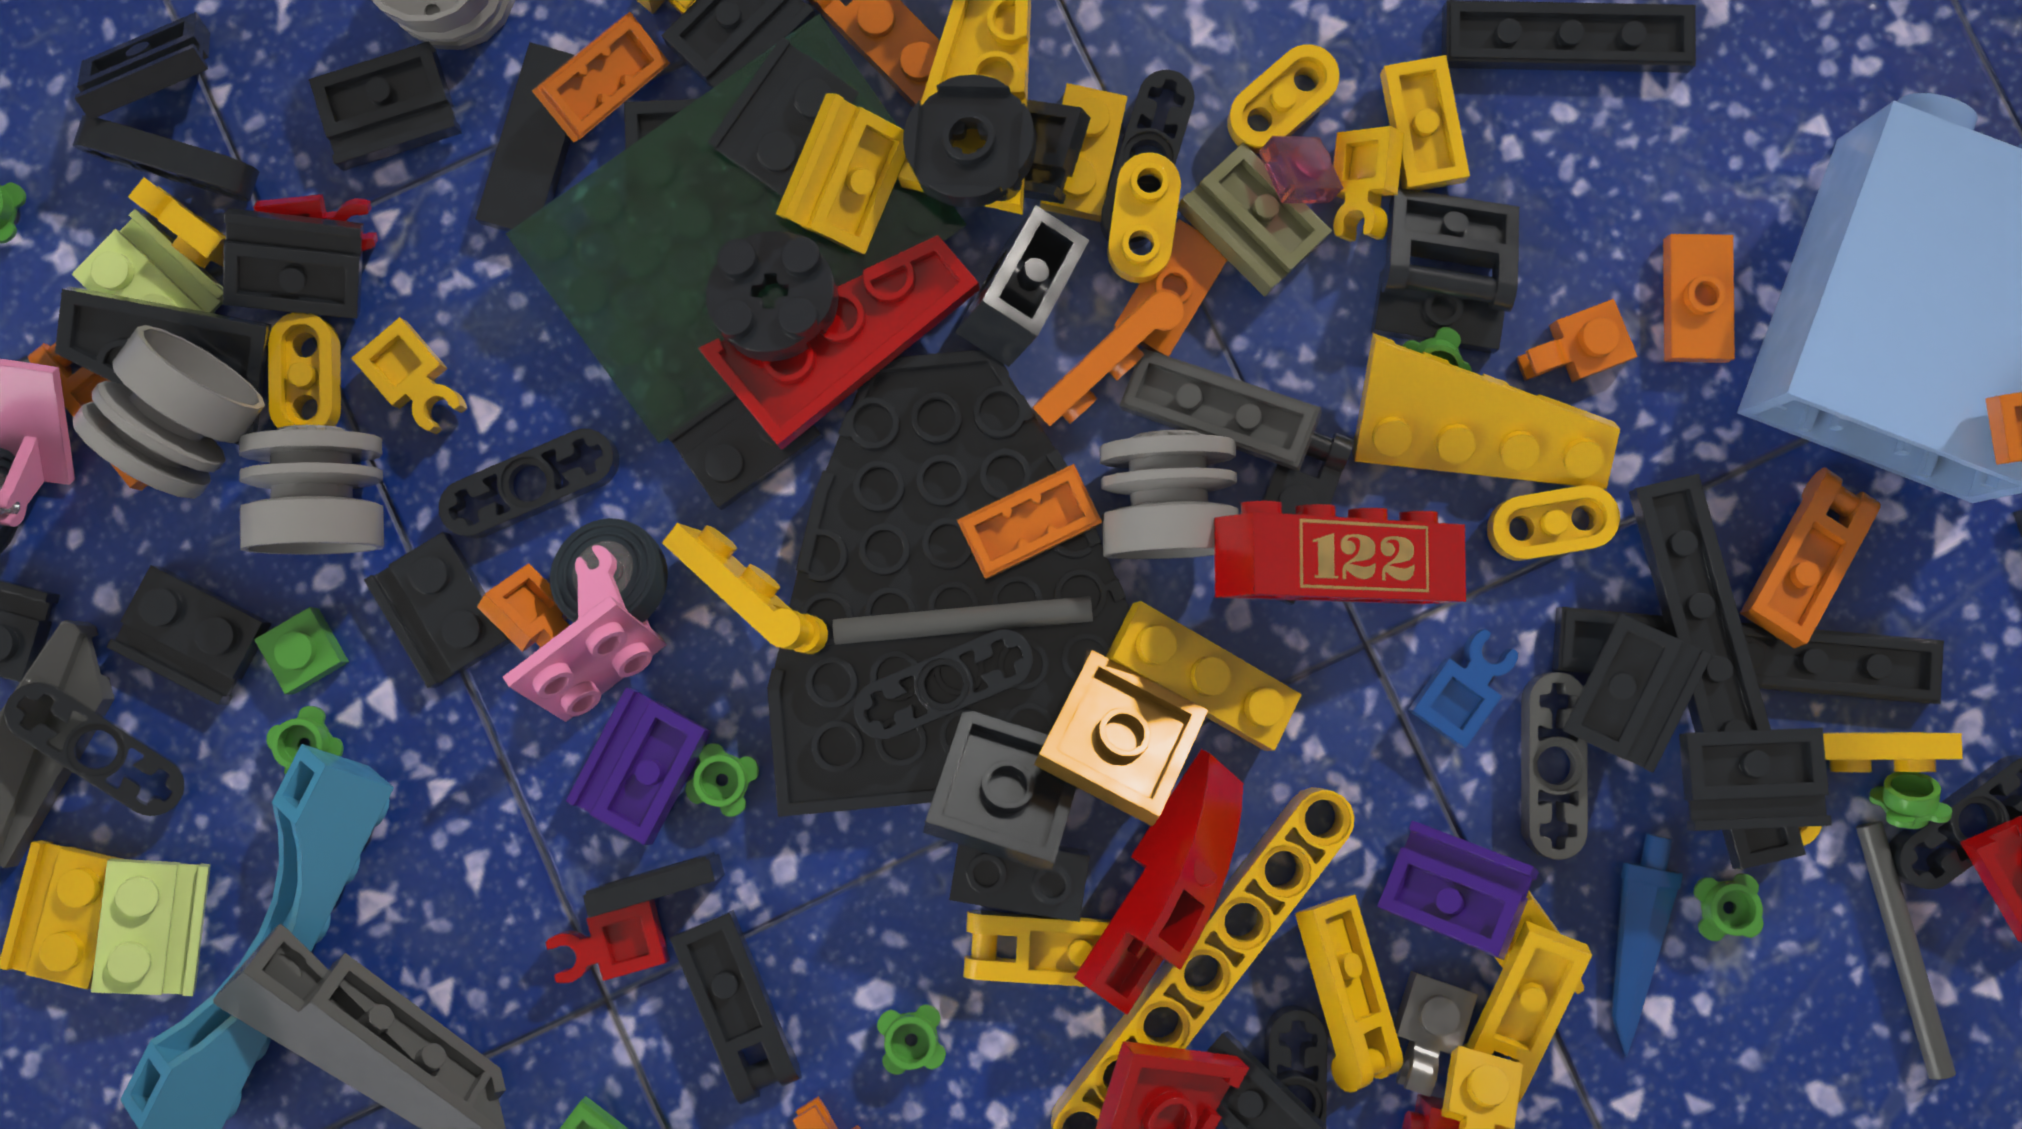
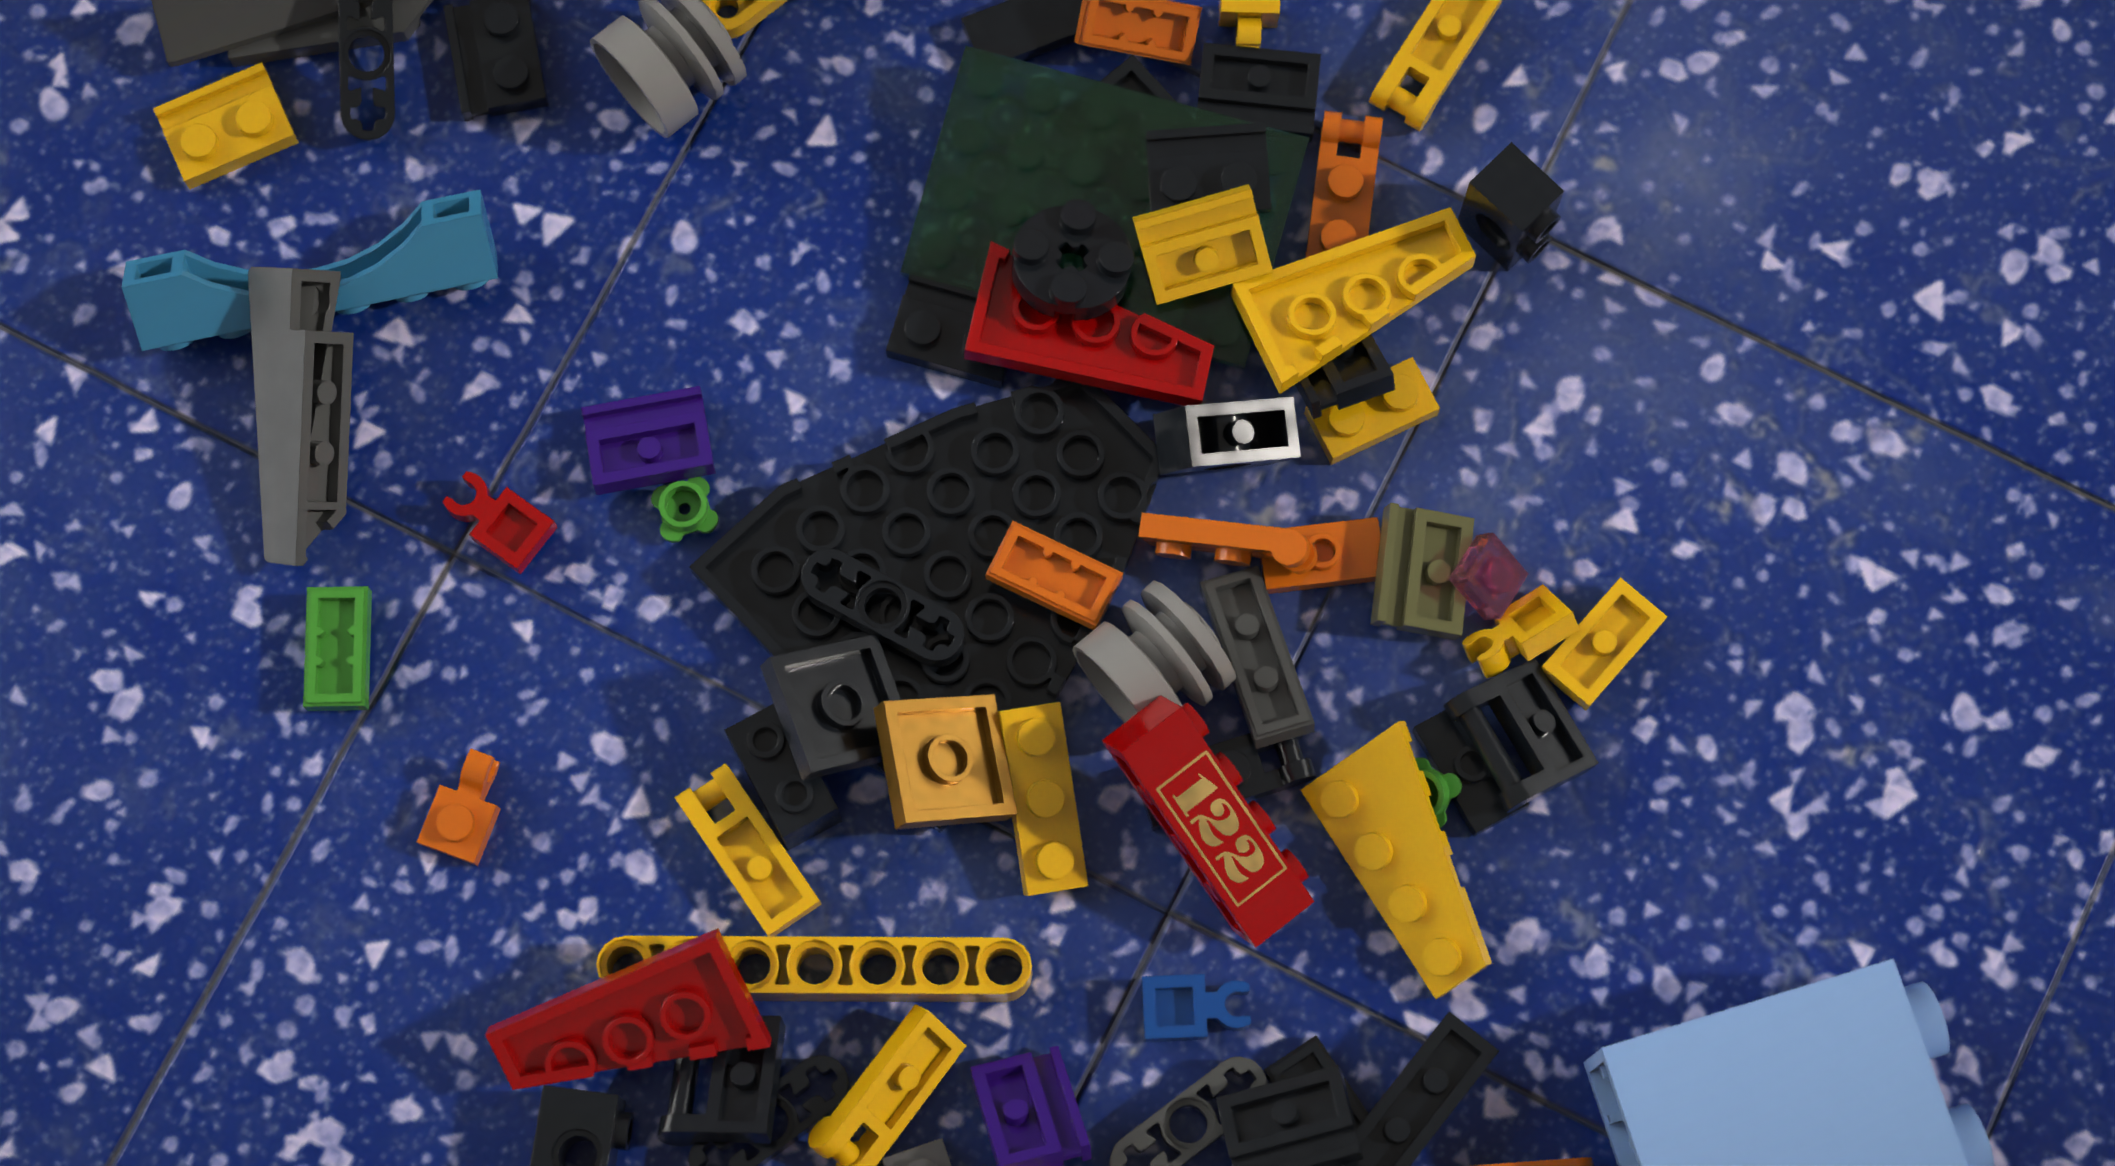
camera: 50 degrees right, 10 degrees down
(150, 927) = (263, 190): yellowish green plate -> none
(301, 650) = (545, 141): bright green plate -> none
(310, 724) = (496, 187): bright green plate -> none
(405, 370) = (809, 54): yellow plate -> none
(433, 610) = (651, 213): black plate -> none
(493, 517) = (841, 209): black beam -> none
(524, 609) = (704, 279): orange plate -> none
(608, 585) = (762, 315): bright pink plate -> none
(653, 884) = (570, 517): black tile -> none
(735, 1005) = (523, 645): black plate -> none
(745, 589) = (840, 412): yellow plate -> none
(925, 1052) = (596, 778): bright green plate -> none
(962, 620) = (942, 586): dark grey bar -> none
(978, 177) = (1293, 343): black plate -> none
(1143, 215) = (1356, 485): yellow plate -> none
(1144, 113) = (1451, 460): black beam -> none
(1172, 900) = (864, 893): red slope -> none
(1280, 100) = (1533, 519): yellow plate -> none
(1551, 524) = (1377, 975): yellow plate -> none
(1569, 36) = (1767, 703): black tile -> none
(1582, 343) = (1538, 899): orange plate -> none
(1698, 298) = (1645, 959): orange plate -> none

